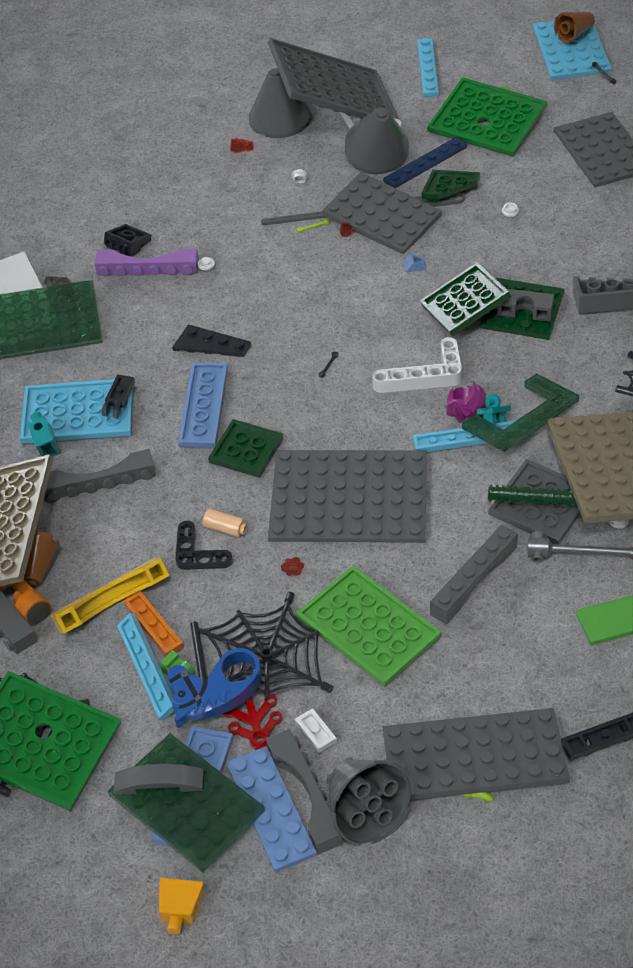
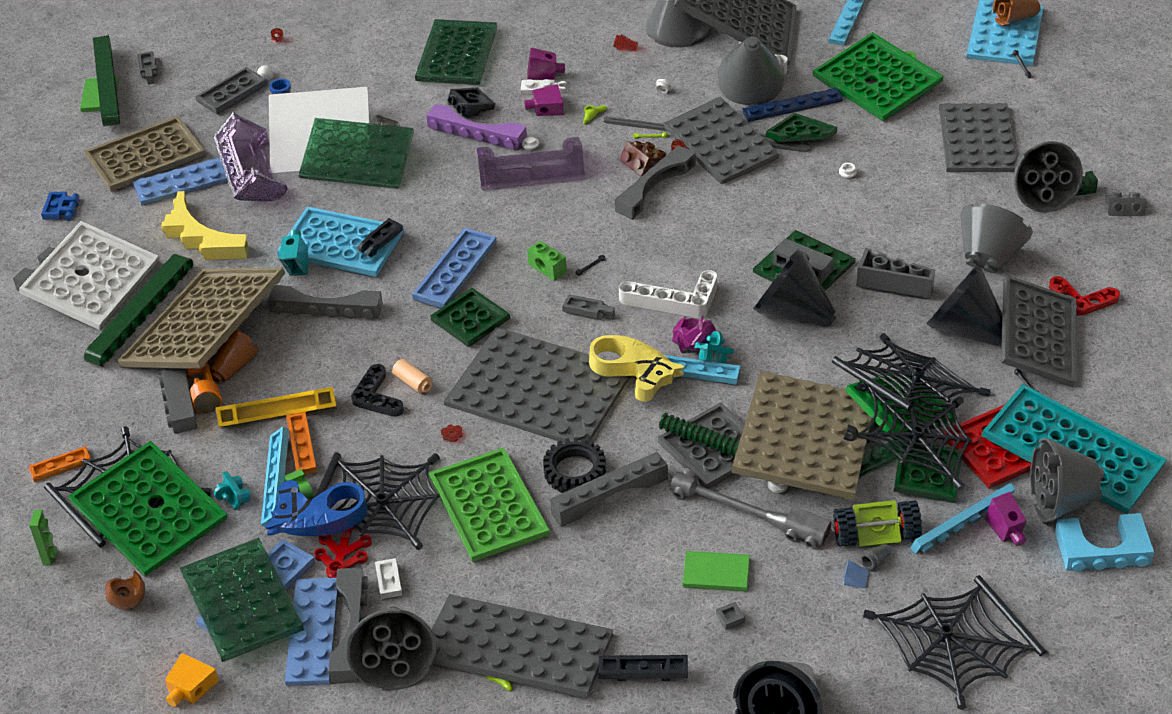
camera: 20 degrees right, 5 degrees down
(69, 827) = (132, 589): none -> dark orange piece
(84, 195) = (456, 52): none -> clear green plate
(109, 693) = (232, 490): none -> teal hips
(158, 776) = (225, 567): dark grey slope -> none
(178, 186) = (543, 65): none -> magenta torso
(185, 206) = (529, 85): none -> white plate
(199, 219) = (546, 101): none -> magenta torso
(202, 340) = (493, 214): black wing -> none
(221, 286) = (531, 167): none -> clear purple windscreen
(246, 218) = (592, 111): none -> lime animal
(288, 371) = (547, 260): none -> bright green brick
(318, 248) = (640, 156): none -> reddish brown bracket
(351, 405) = (588, 307): none -> dark grey hinge
(354, 245) = (675, 163): none -> dark grey arch
(414, 263) = (726, 195): medium blue slope -> none
(426, 543) = (570, 449): none -> black tyre
(431, 442) = (637, 360): none -> light yellow animal
(465, 299) = (746, 239): plate -> none
(537, 336) = (797, 295): none -> black cone
(557, 401) = (784, 357): clear green plate -> none

